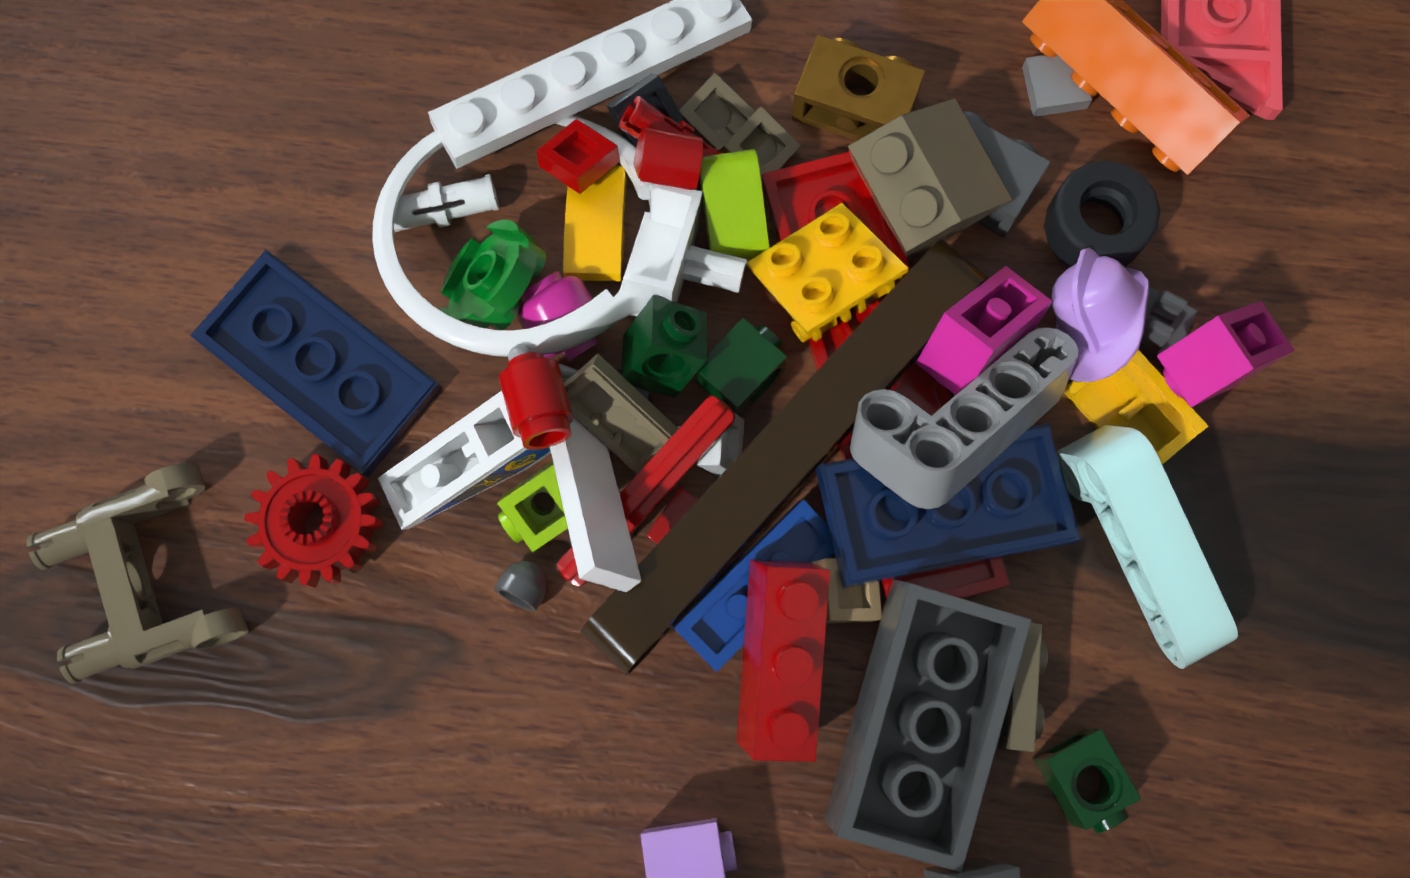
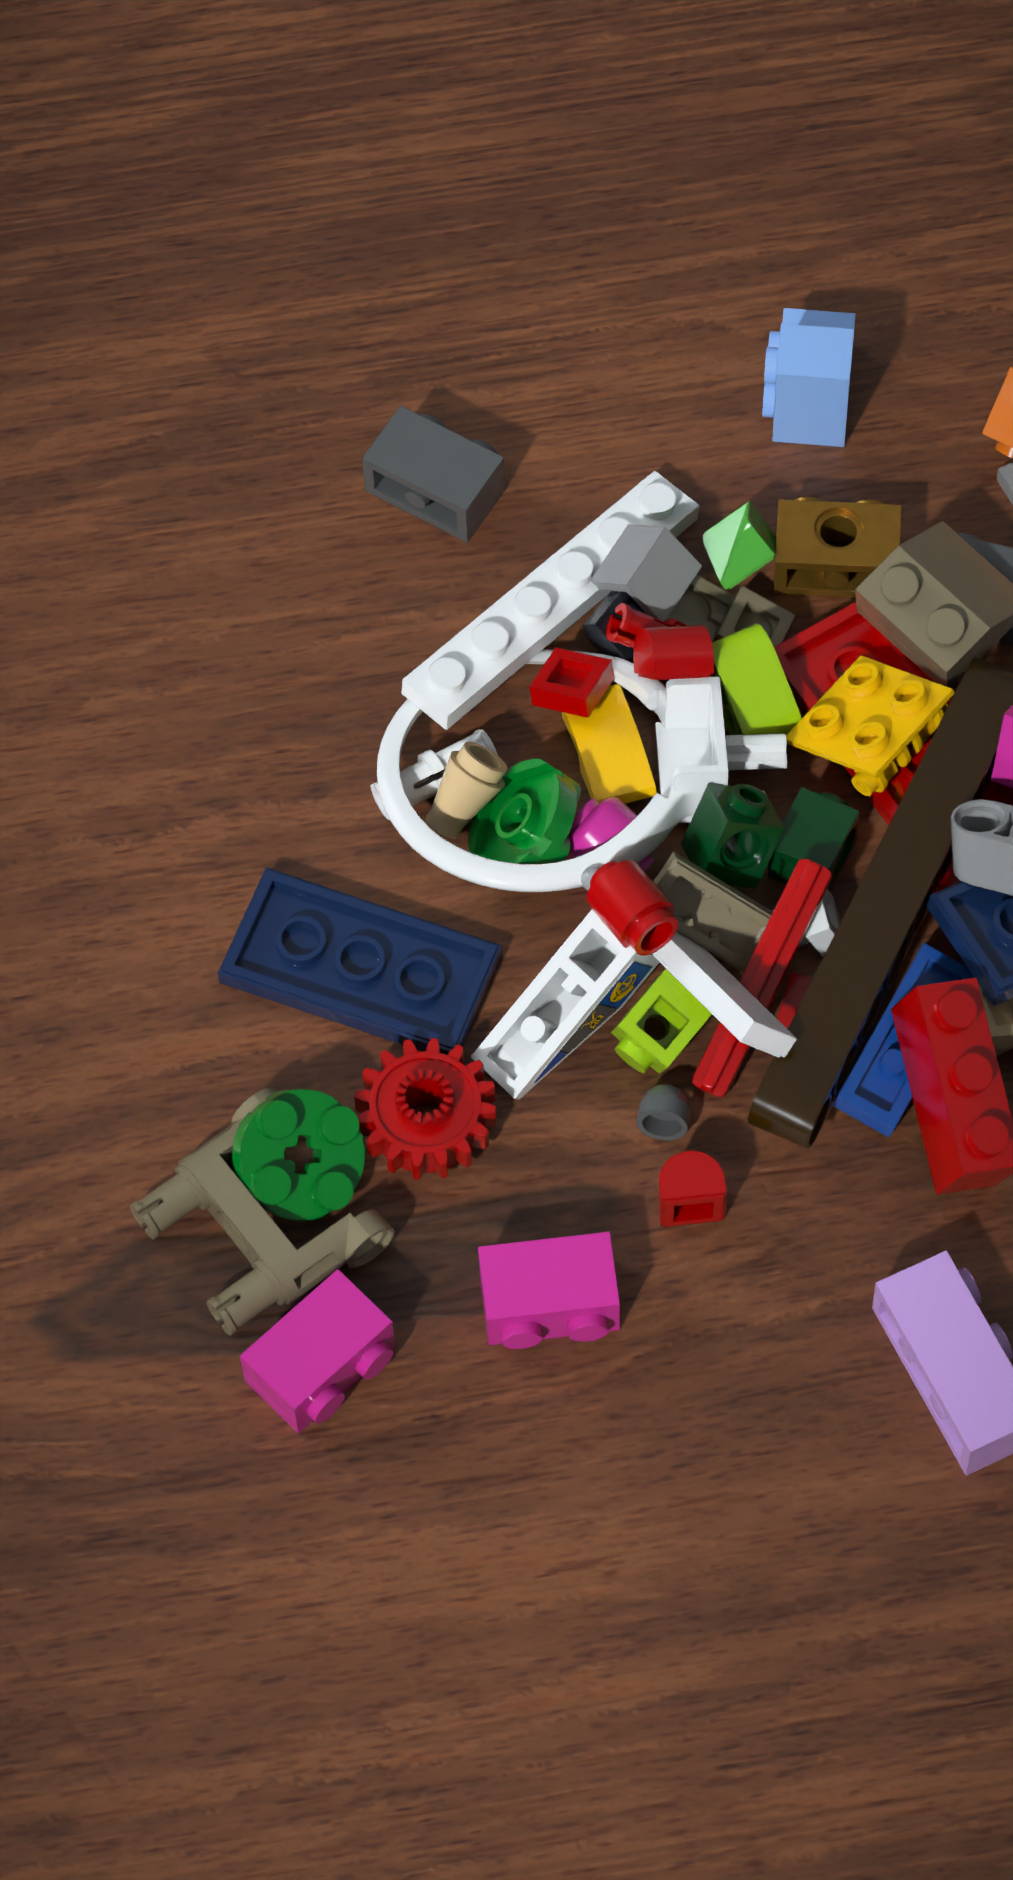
camera: 20 degrees left, 15 degrees down
(136, 728) = (319, 1352): none -> dark pink brick
(174, 568) = (328, 1130): none -> green plate
(355, 733) = (549, 1290): none -> dark pink brick
(454, 226) = (466, 787): none -> tan cone
(514, 673) = (691, 1190): none -> red brick
(679, 70) = (649, 567): none -> light grey panel
(771, 67) = (739, 545): none -> bright green slope

